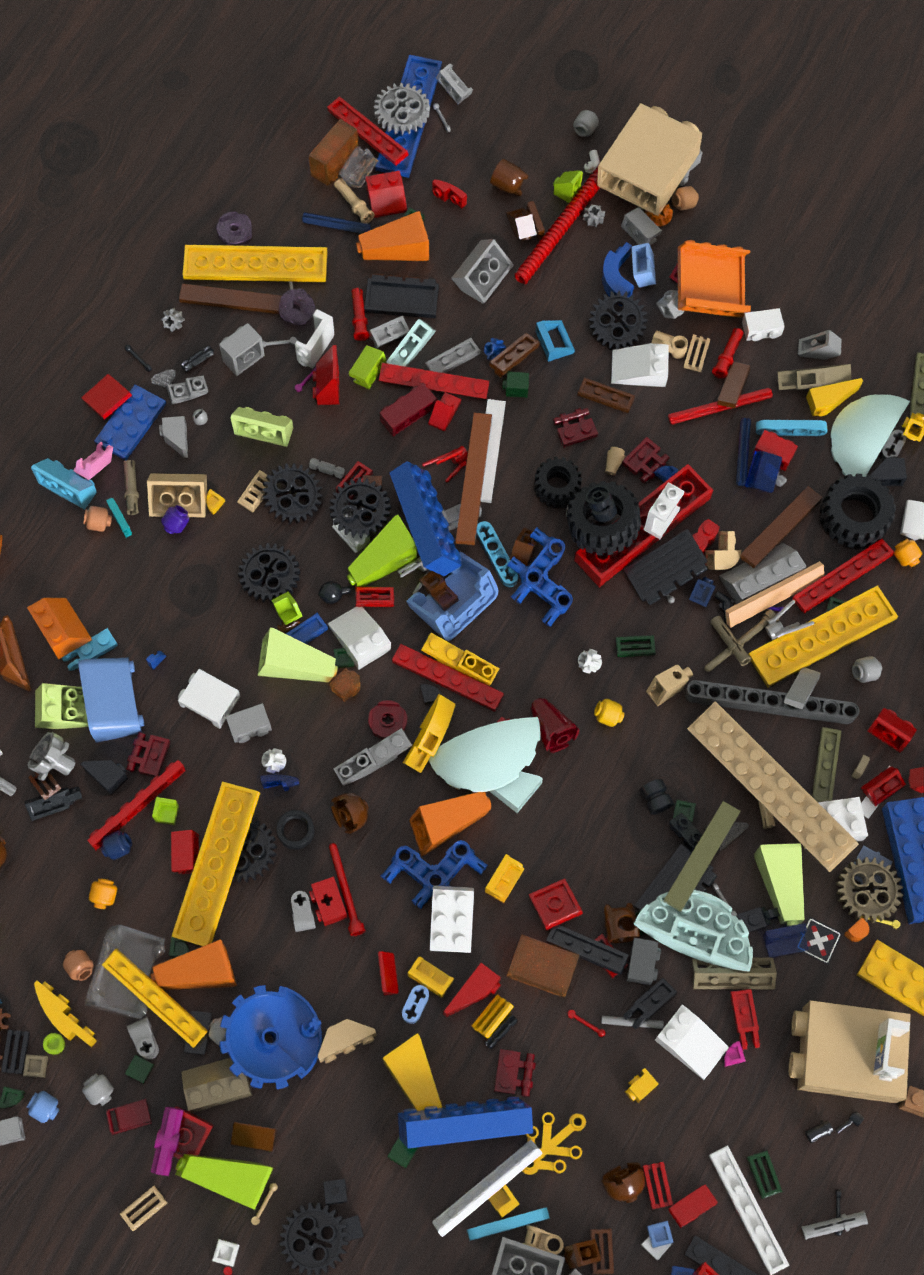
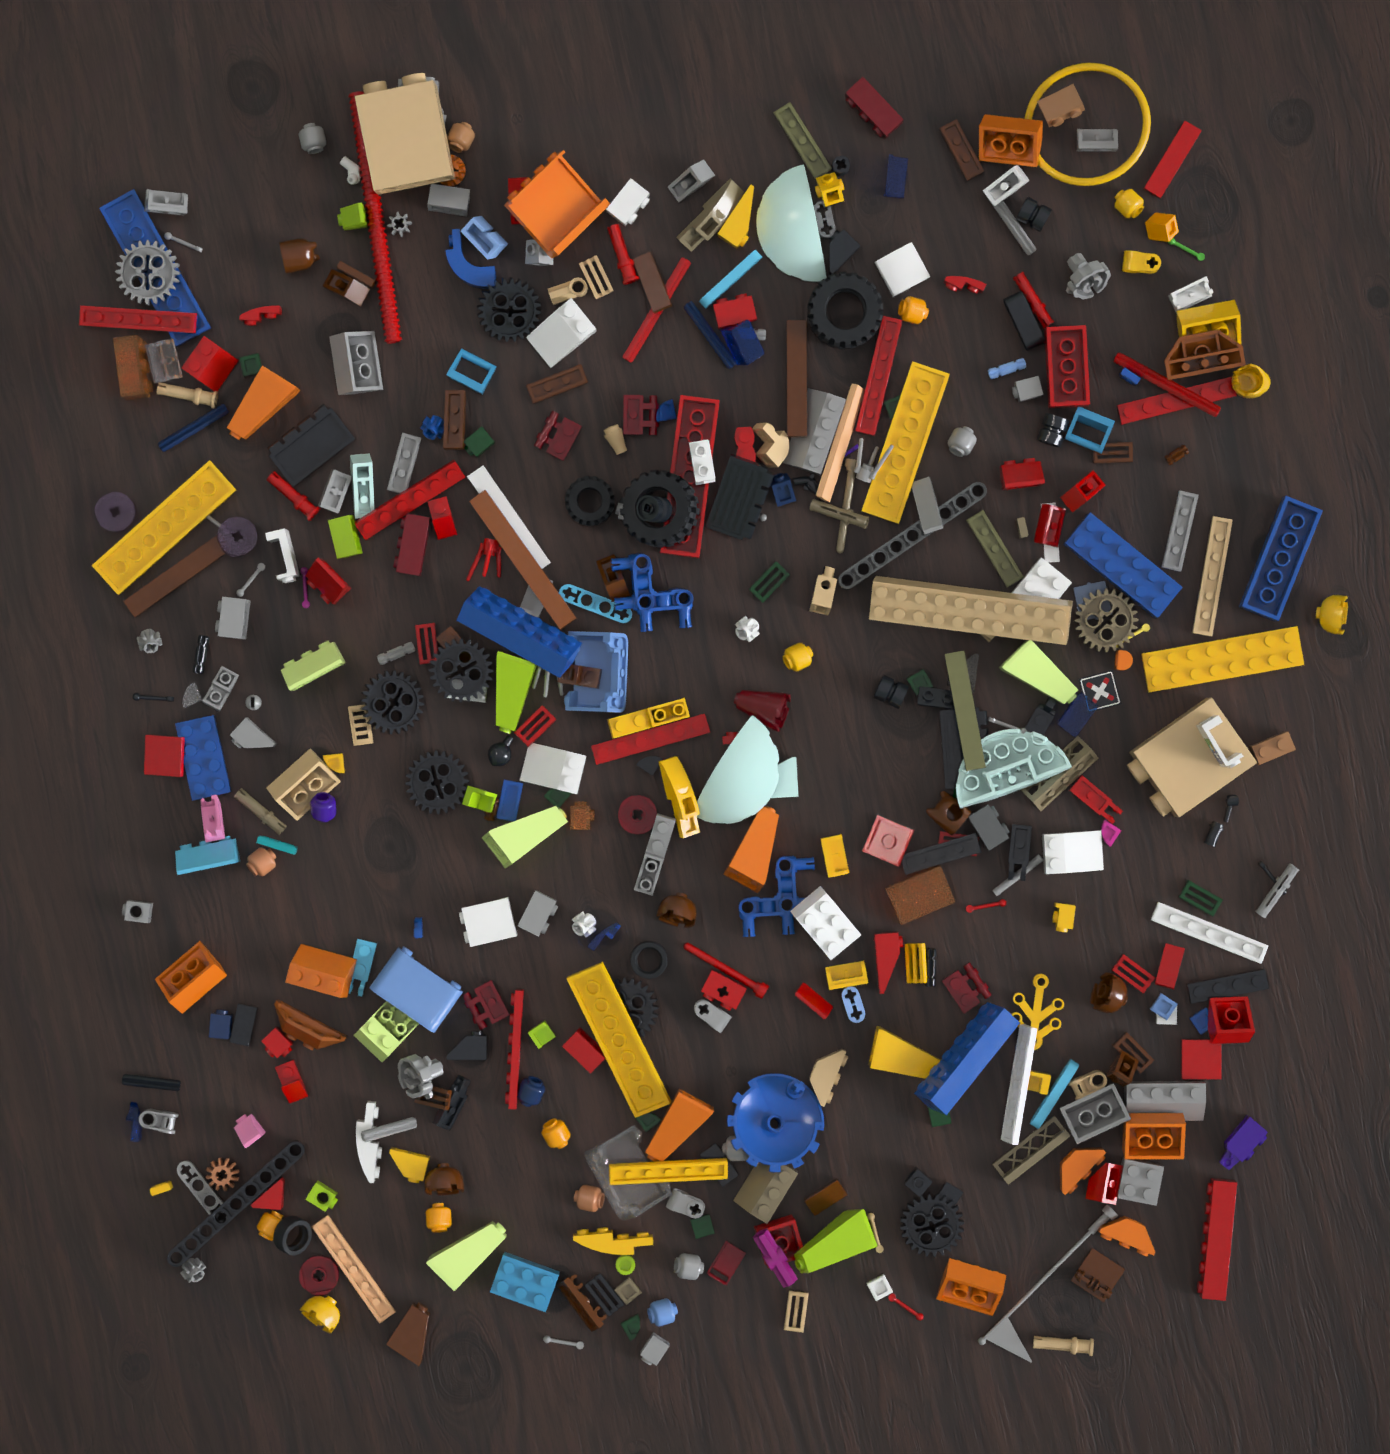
camera: 40 degrees left, 20 degrees up
(448, 1261) = (1035, 1156): none -> dark tan fence

